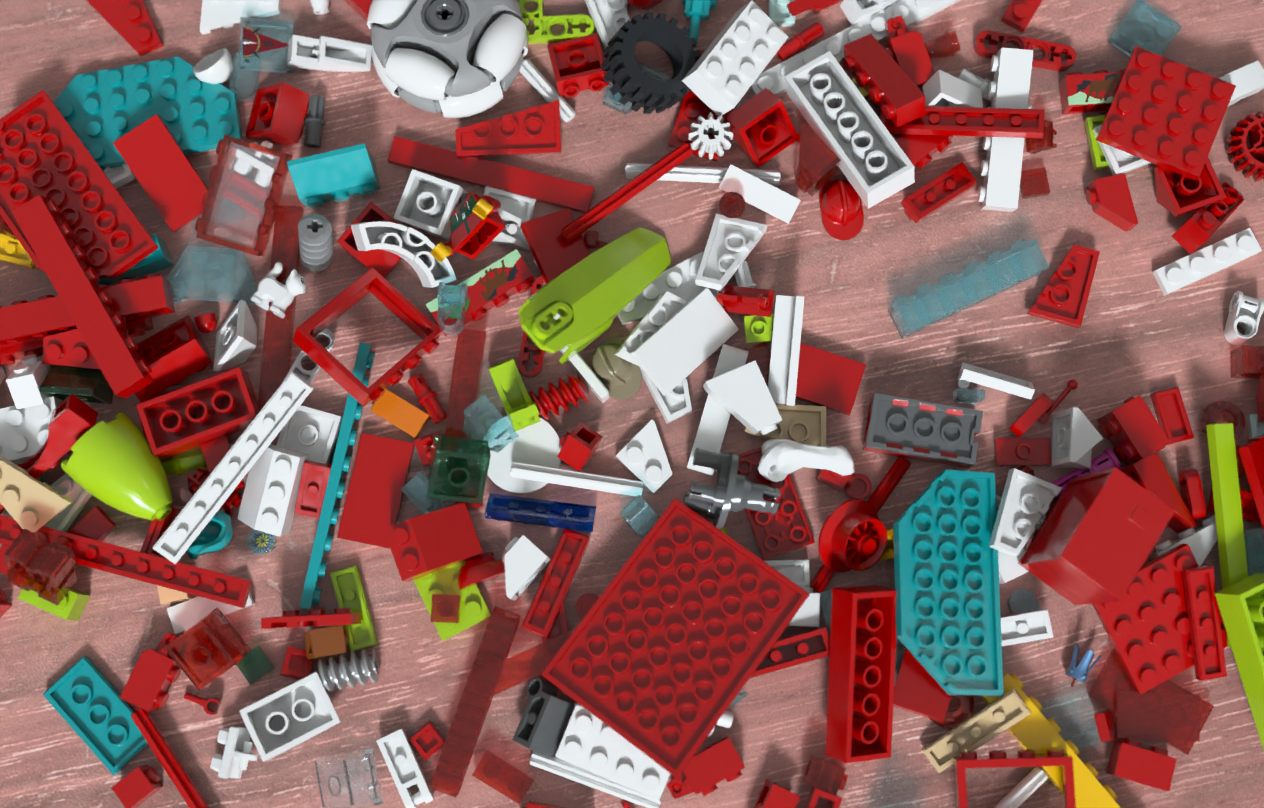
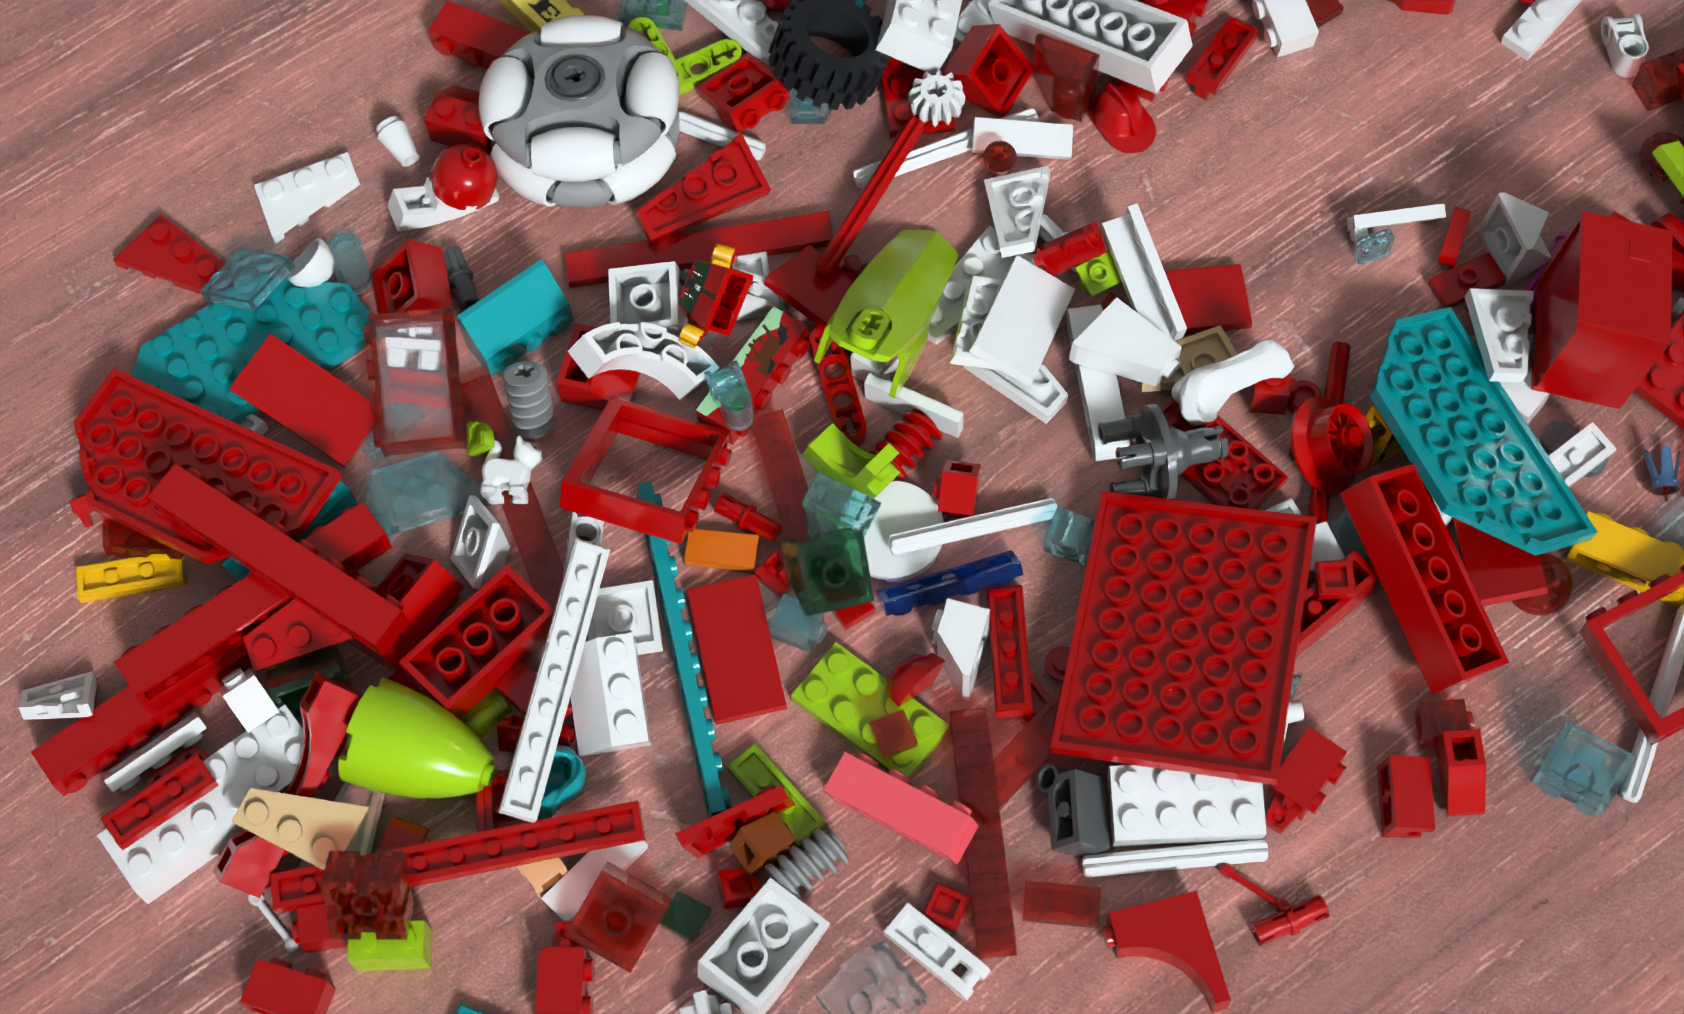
camera: 25 degrees left, 15 degrees down
(165, 58) = (247, 279): none -> clear light blue plate
(202, 702) = (641, 990): red hand -> none
(206, 323) = (433, 547): red hinge -> none
(261, 542) = (622, 768): clear light blue tile -> none
(265, 44) = (360, 219): clear light blue tile -> none
(270, 254) = (479, 438): none -> lime tile
(312, 488) = (660, 675): plate -> none
(346, 47) = (464, 176): none -> red cylinder
(426, 663) = (902, 807): none -> coral brick
(433, 541) = (837, 666): red slope -> none
(617, 375) = (958, 388): dark tan piece -> none
(647, 458) = (1043, 472): white wing -> none
(799, 644) = (1334, 579): none -> red tile
(922, 430) = (1342, 300): dark grey piece -> none
(968, 287) = (1309, 138): clear light blue brick -> none
(977, 729) = (1588, 589): tan tile -> none
(1068, 289) = (1419, 94): red wing -> none
(1071, 385) = (1470, 235): red hinge -> none
(1132, 431) = (1575, 188): red brick -> none
(1172, 415) = (1608, 175): red tile -> none

